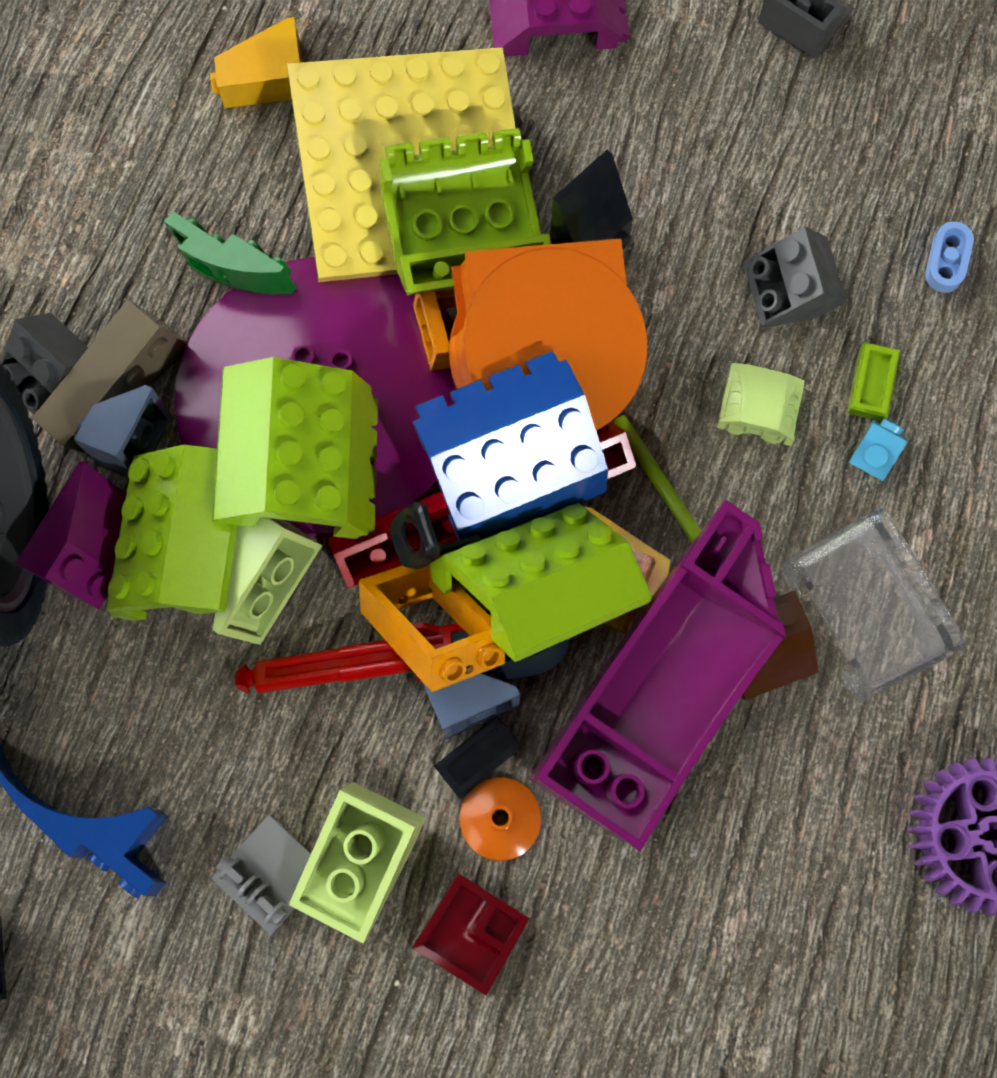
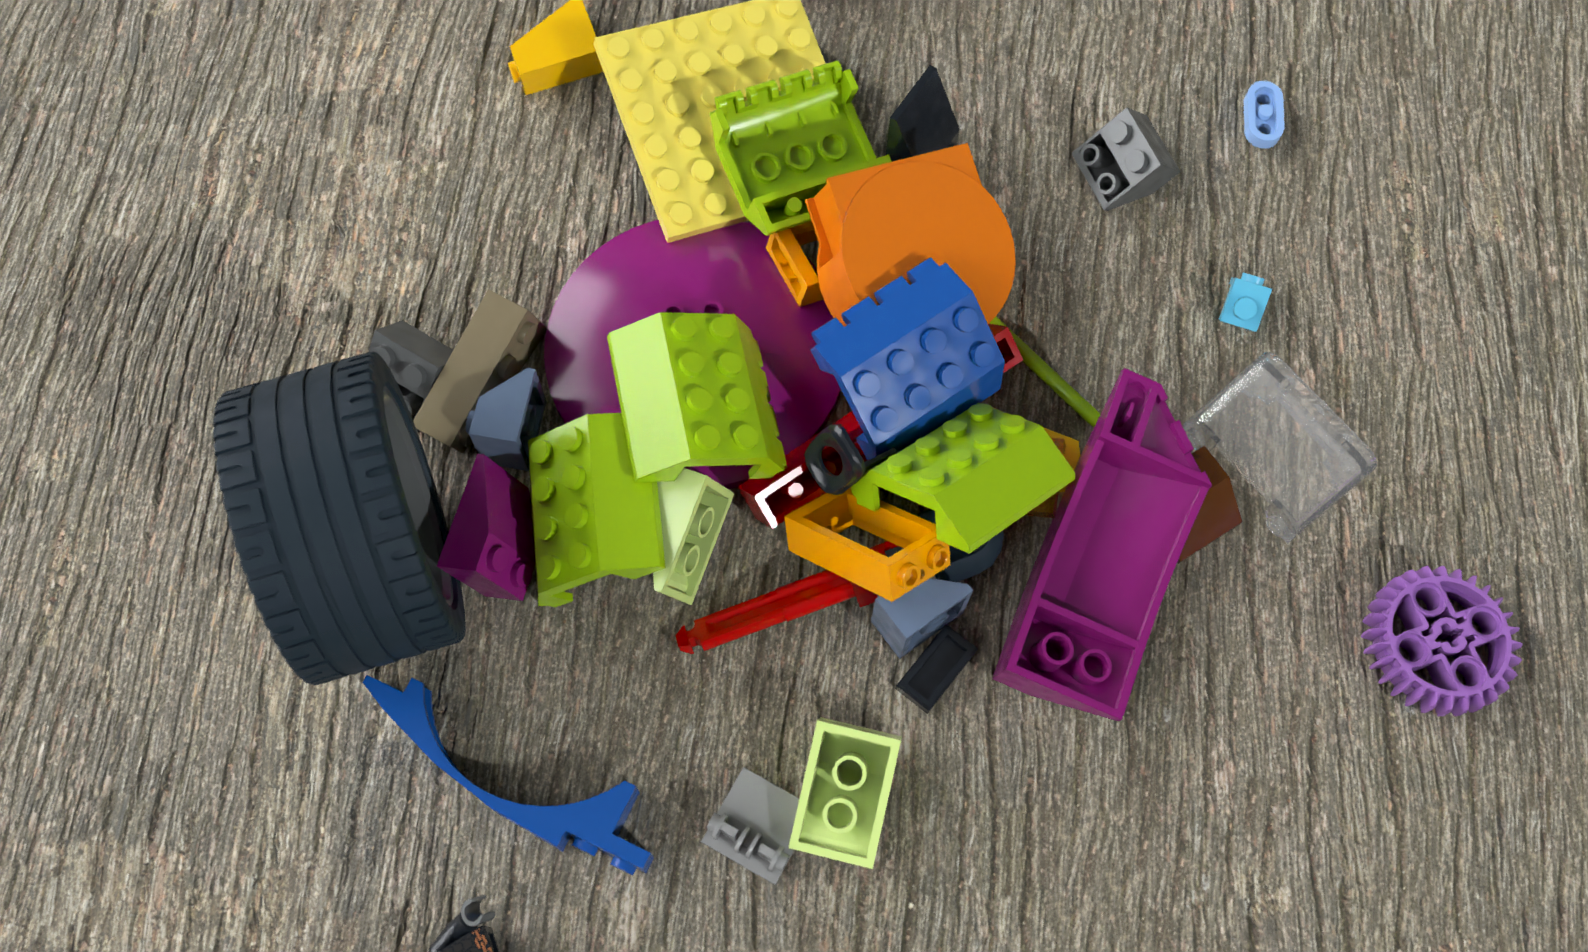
camera: 15 degrees left, 5 degrees down
(229, 262) = (578, 240): slope -> none
(471, 933) = (974, 839): dark red plate -> none
(496, 841) = (960, 740): orange dish -> none
(761, 403) = (1122, 281): yellowish green slope -> none
(873, 381) = (1223, 242): lime tile -> none

